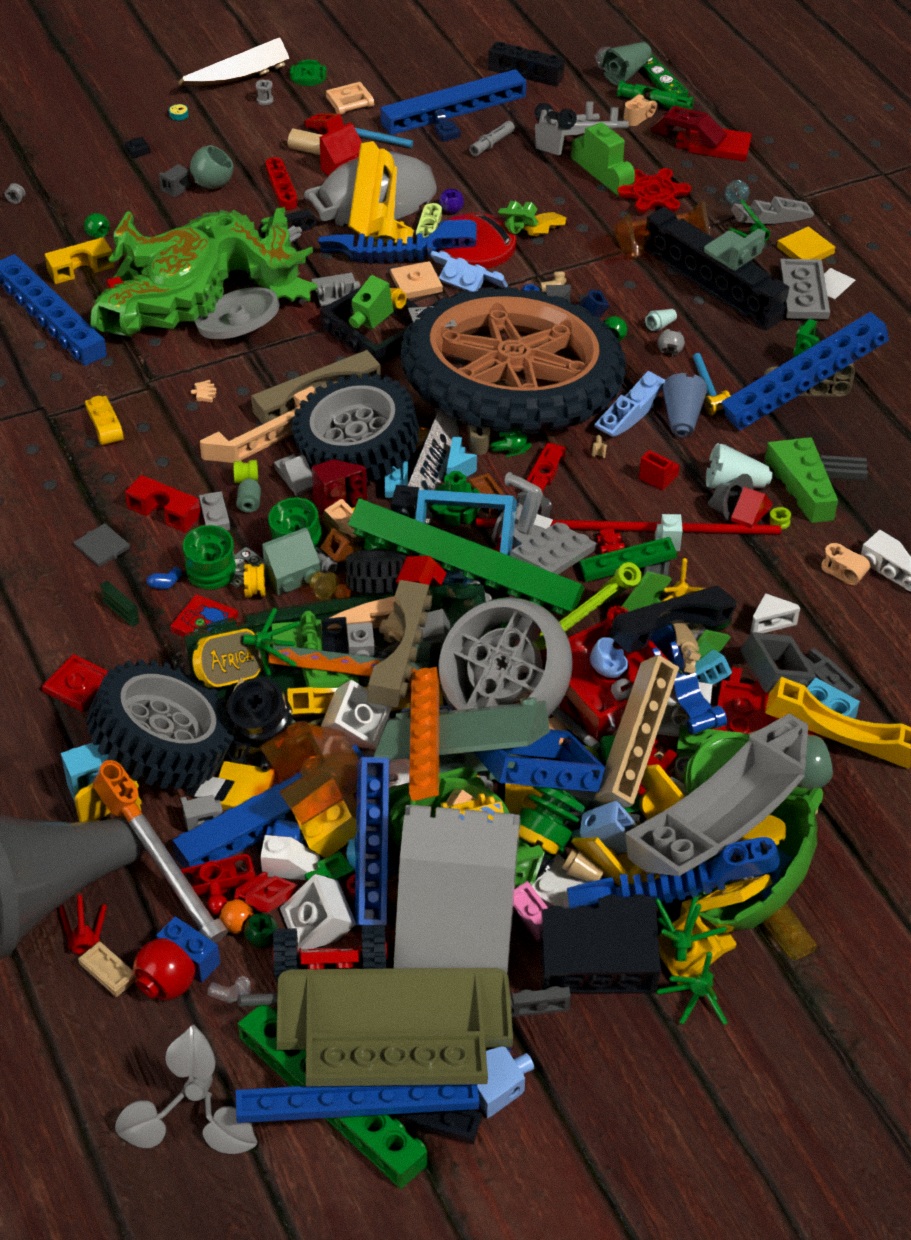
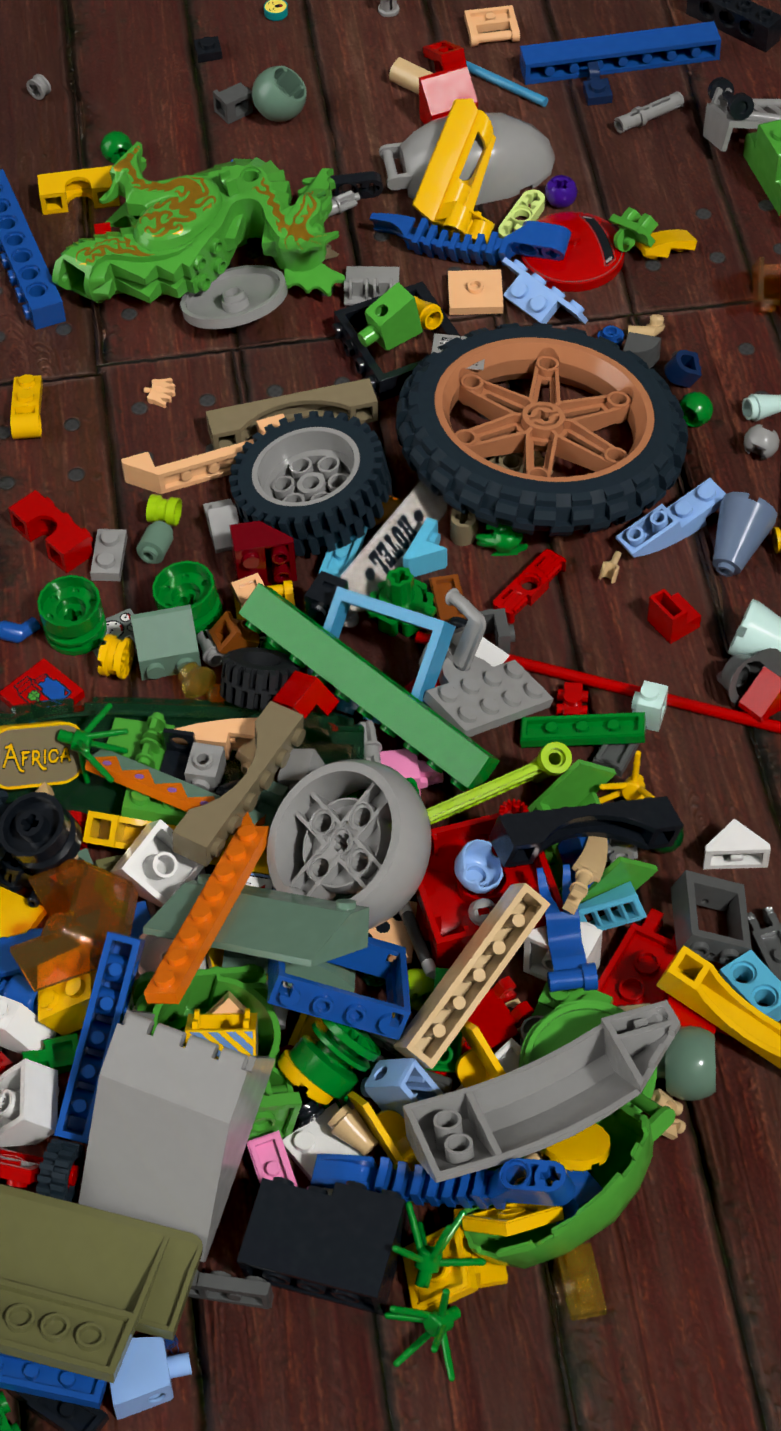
camera: 20 degrees right, 5 degrees up
(280, 183) = (361, 128): red beam -> none

